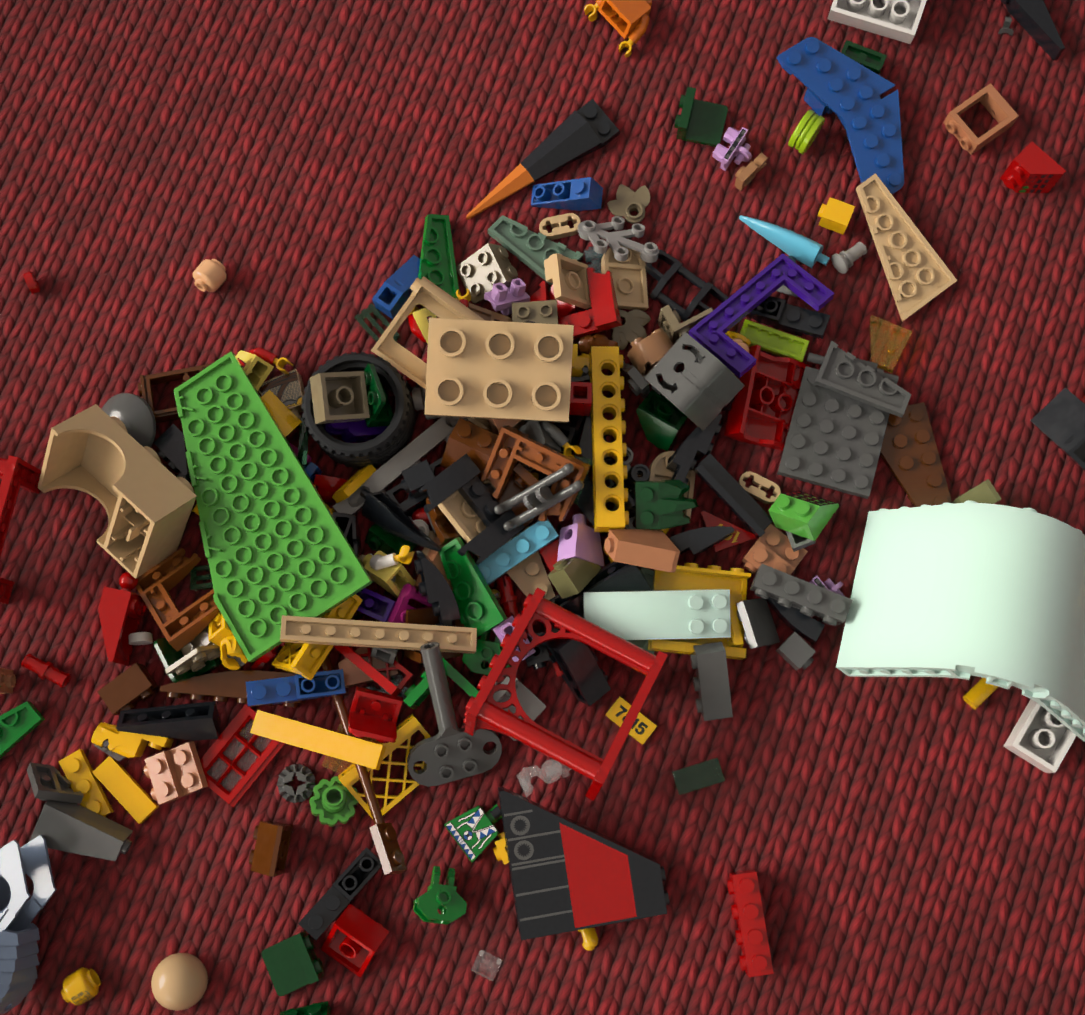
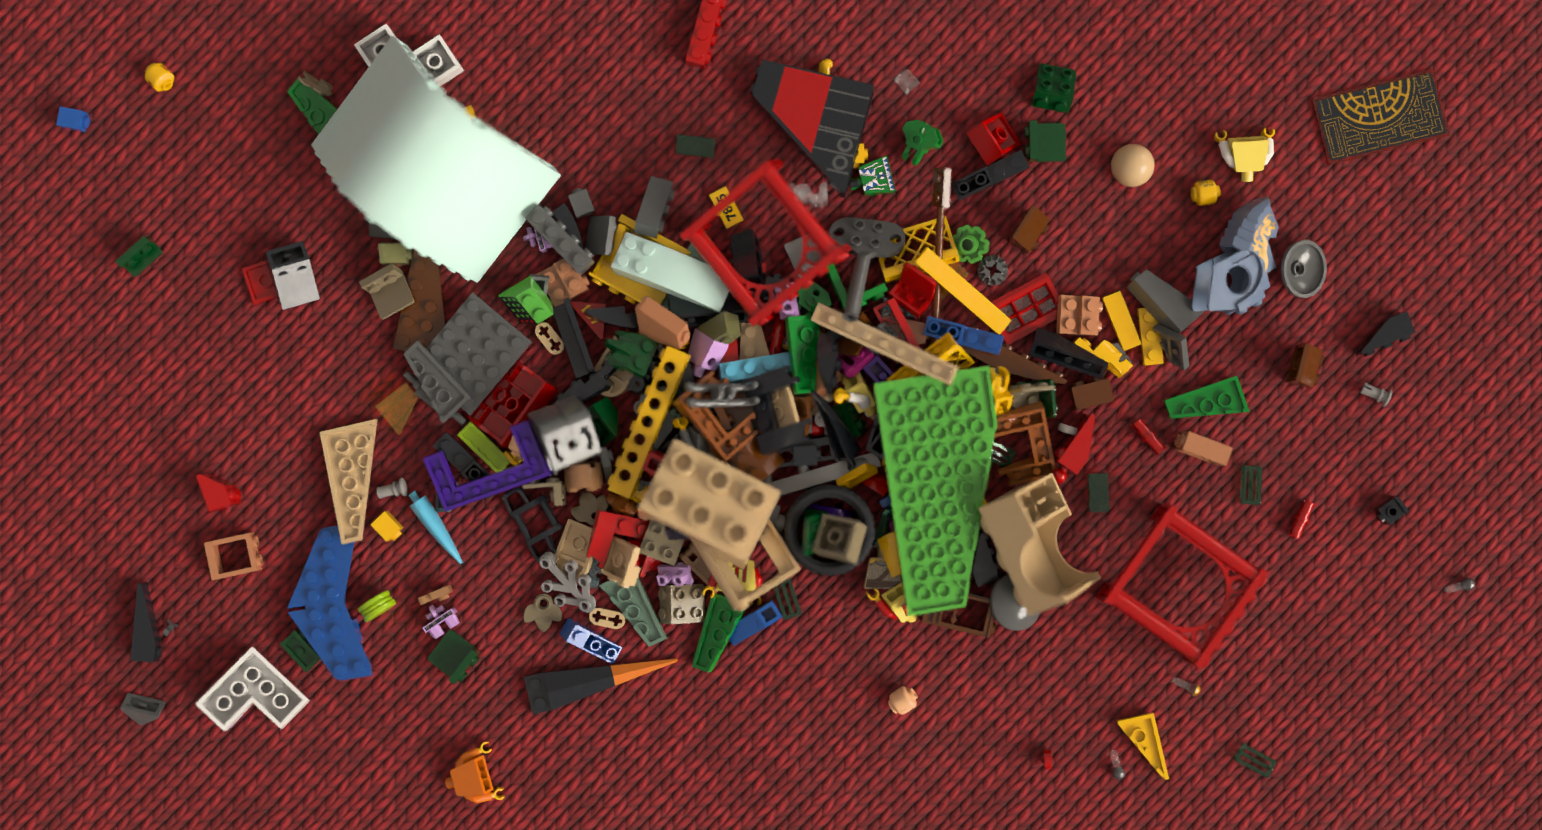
camera: 165 degrees left, 10 degrees up
(80, 584) = (1098, 492): none -> clear green tile
(960, 459) = (388, 290): none -> dark tan bracket

